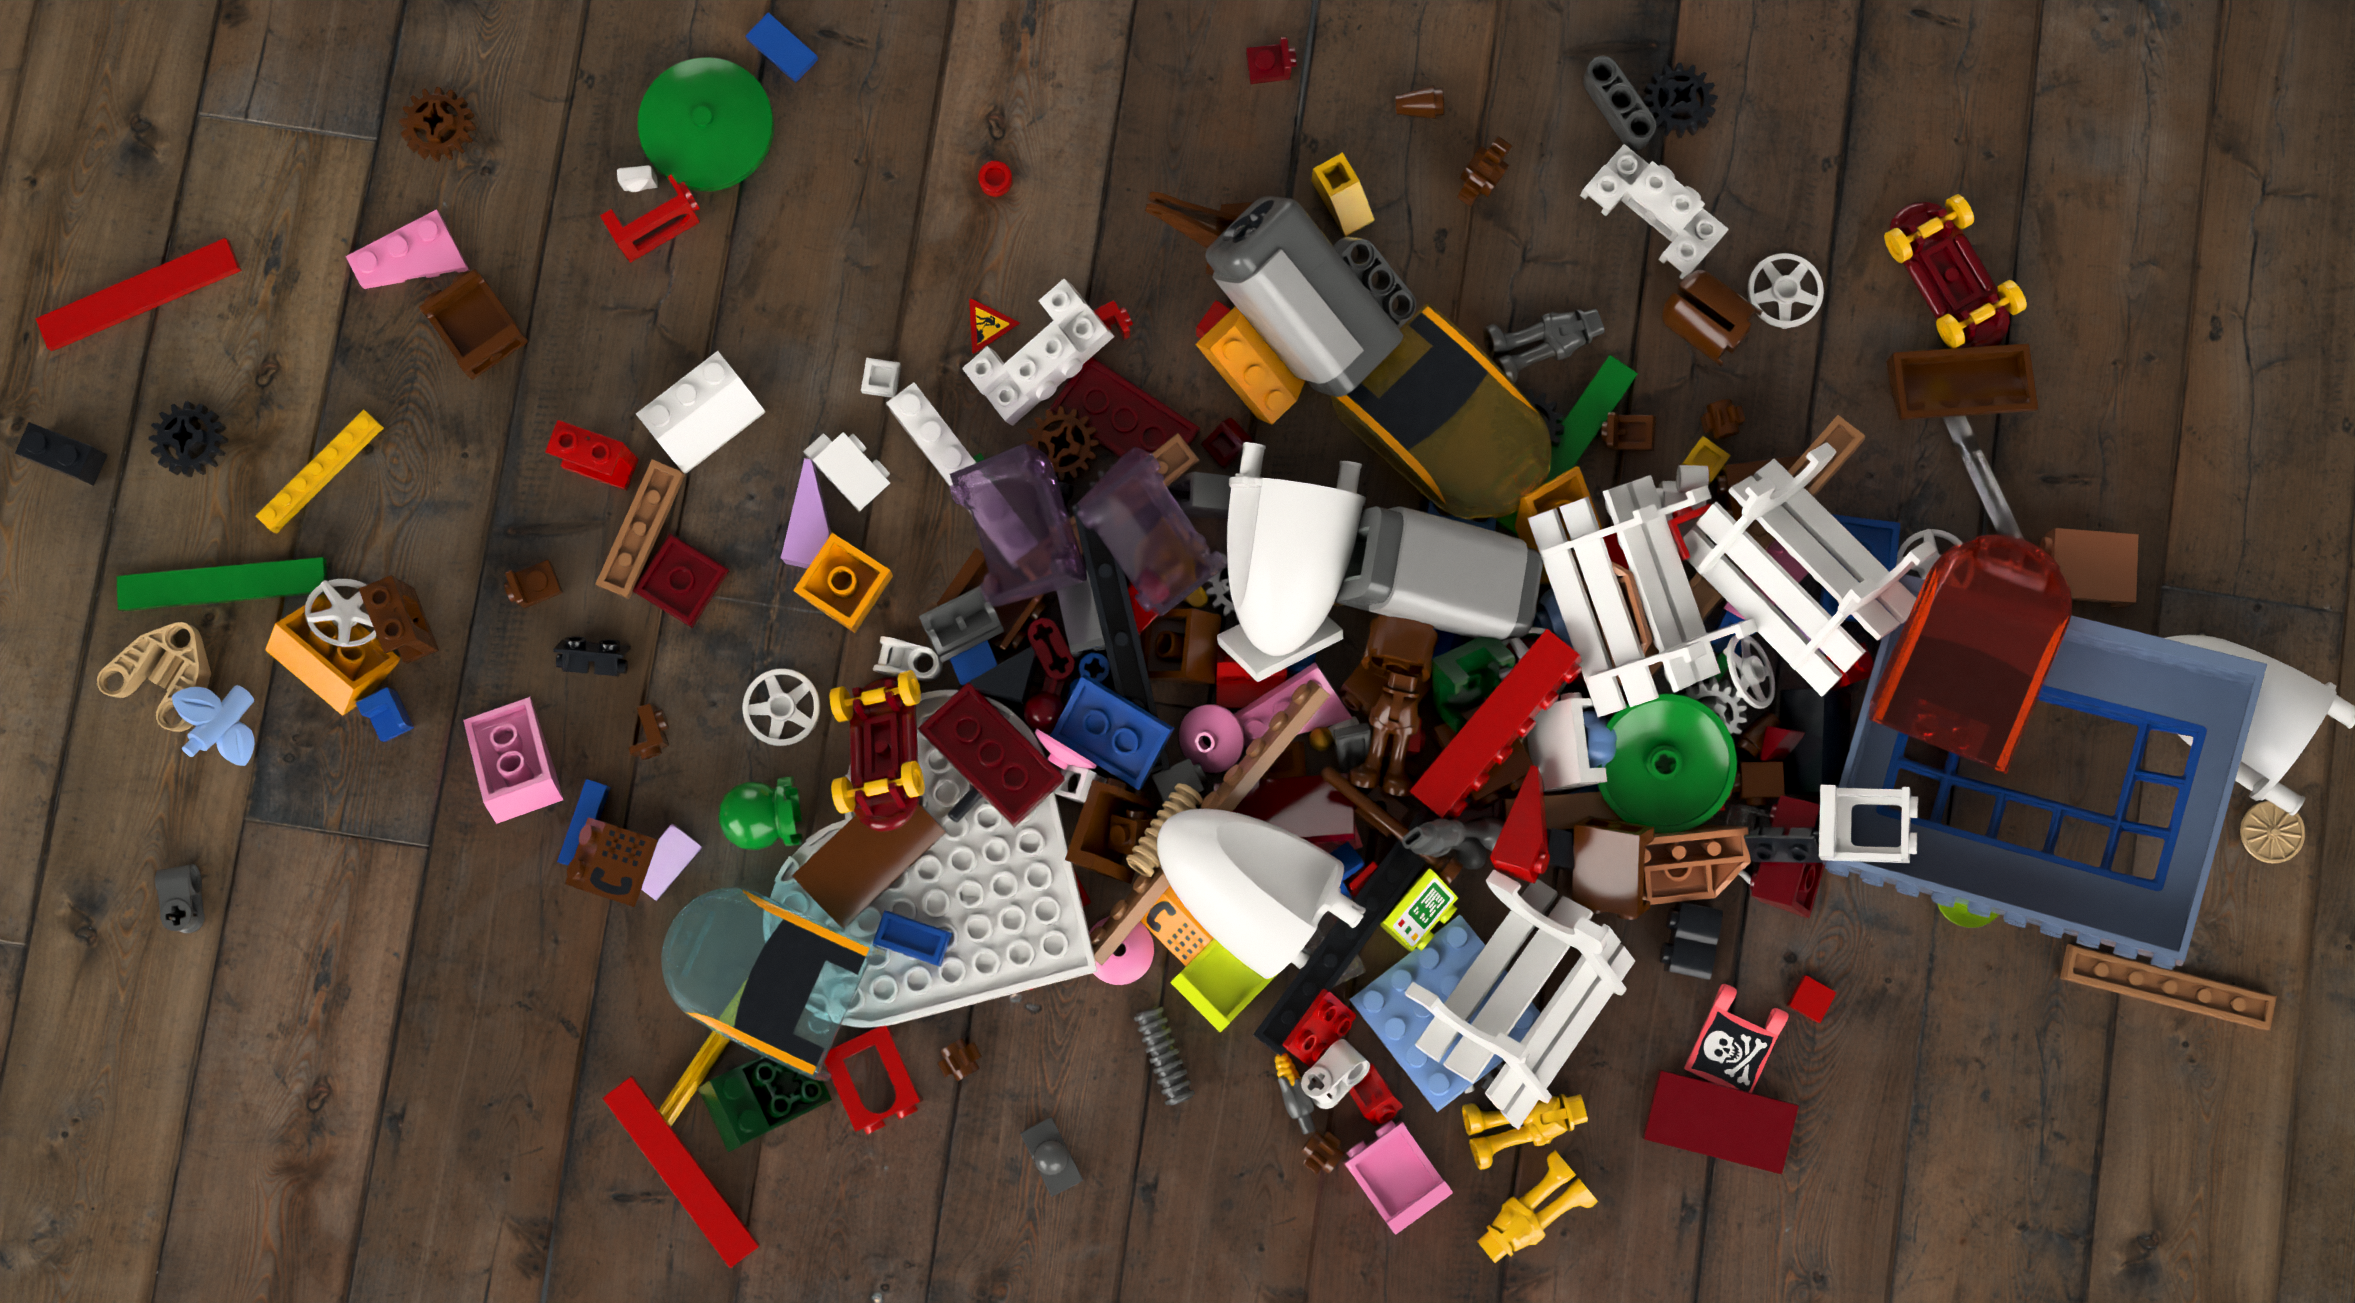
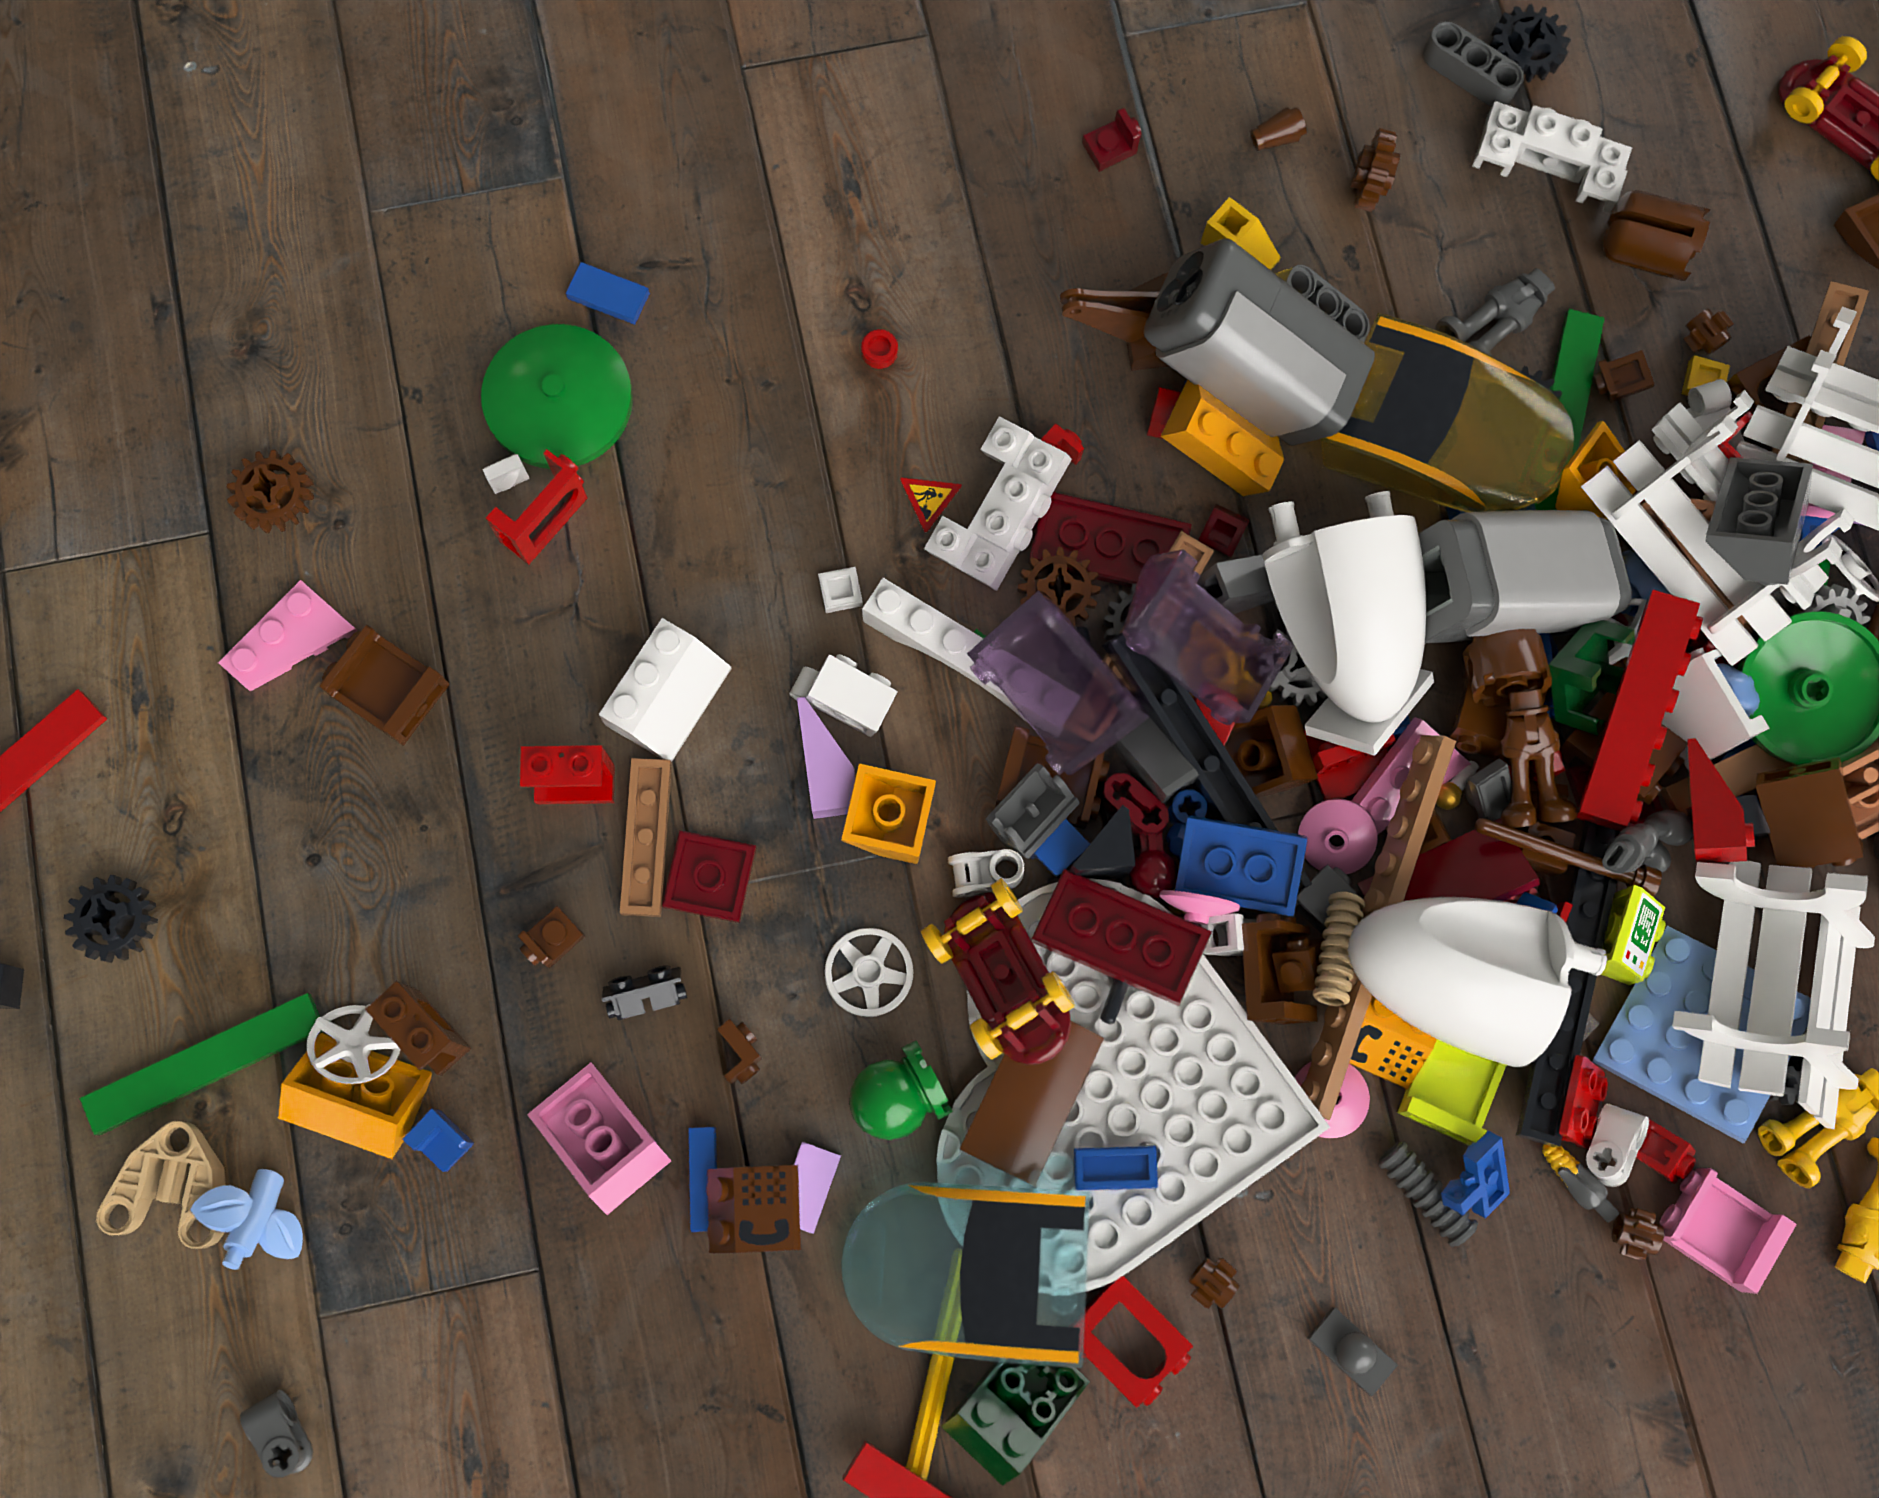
camera: 25 degrees left, 5 degrees down
(319, 471) = (270, 902): yellow piece -> none
(1209, 1060) = (1484, 1180): none -> blue hinge
(1661, 600) = (1760, 517): none -> dark grey slope
(1785, 290) = (1710, 187): white wheel -> none

